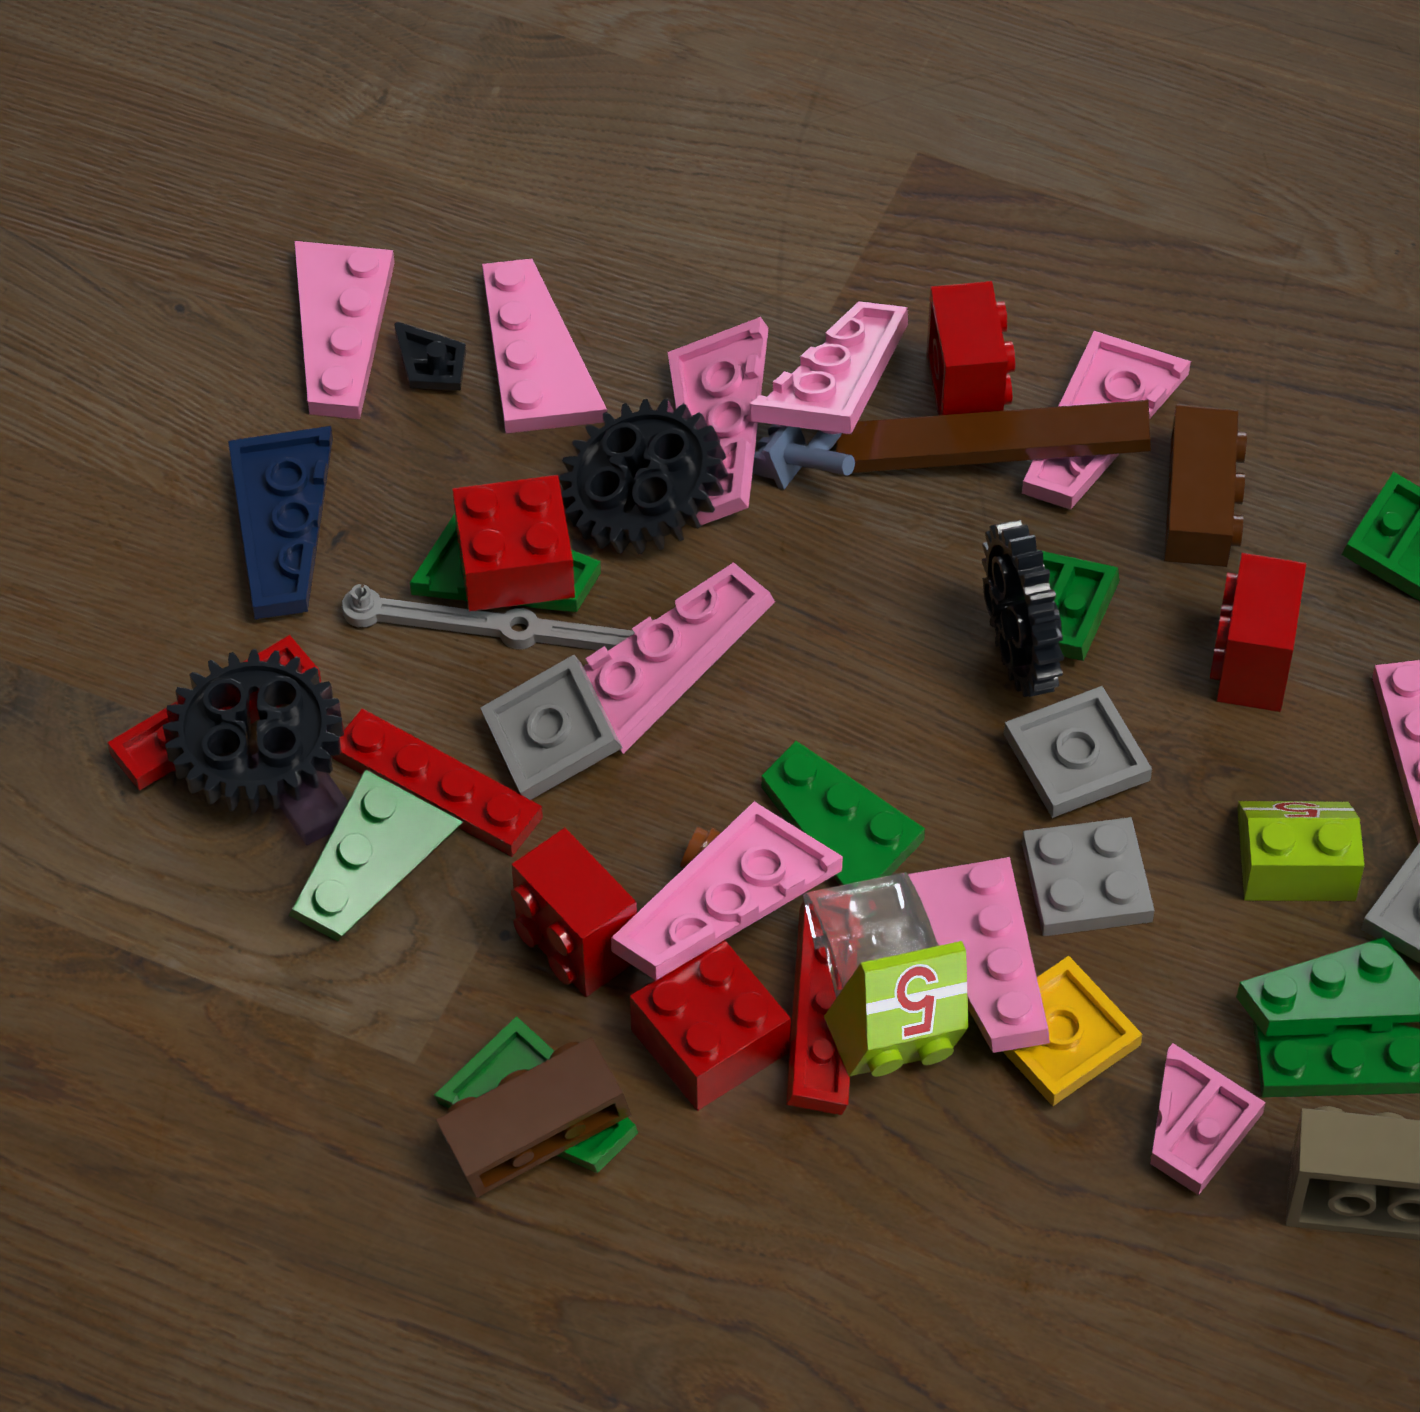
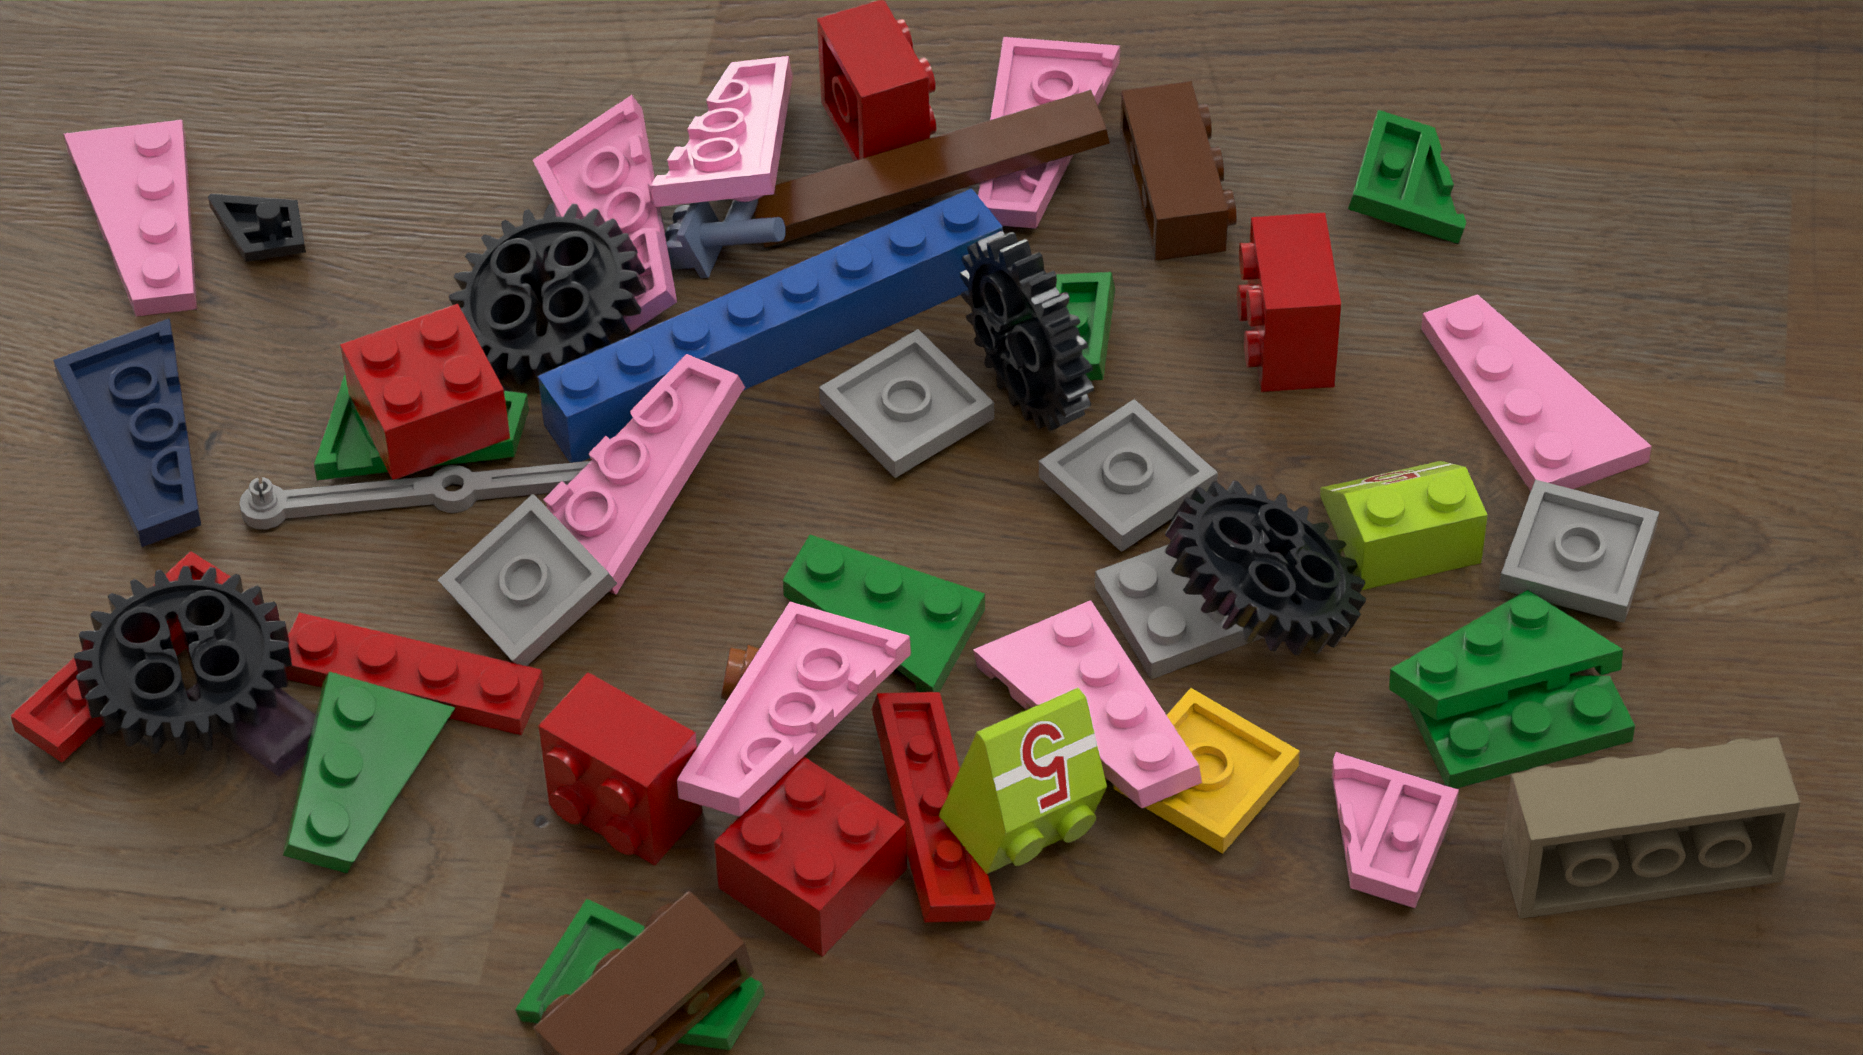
camera: 15 degrees left, 5 degrees down
(535, 357) = (379, 197): bright pink wing -> none
(824, 543) = (774, 320): none -> blue brick
(867, 923) = (951, 702): clear slope -> none
(912, 642) = (906, 403): none -> light grey plate
(1162, 865) = (1265, 567): none -> black gear

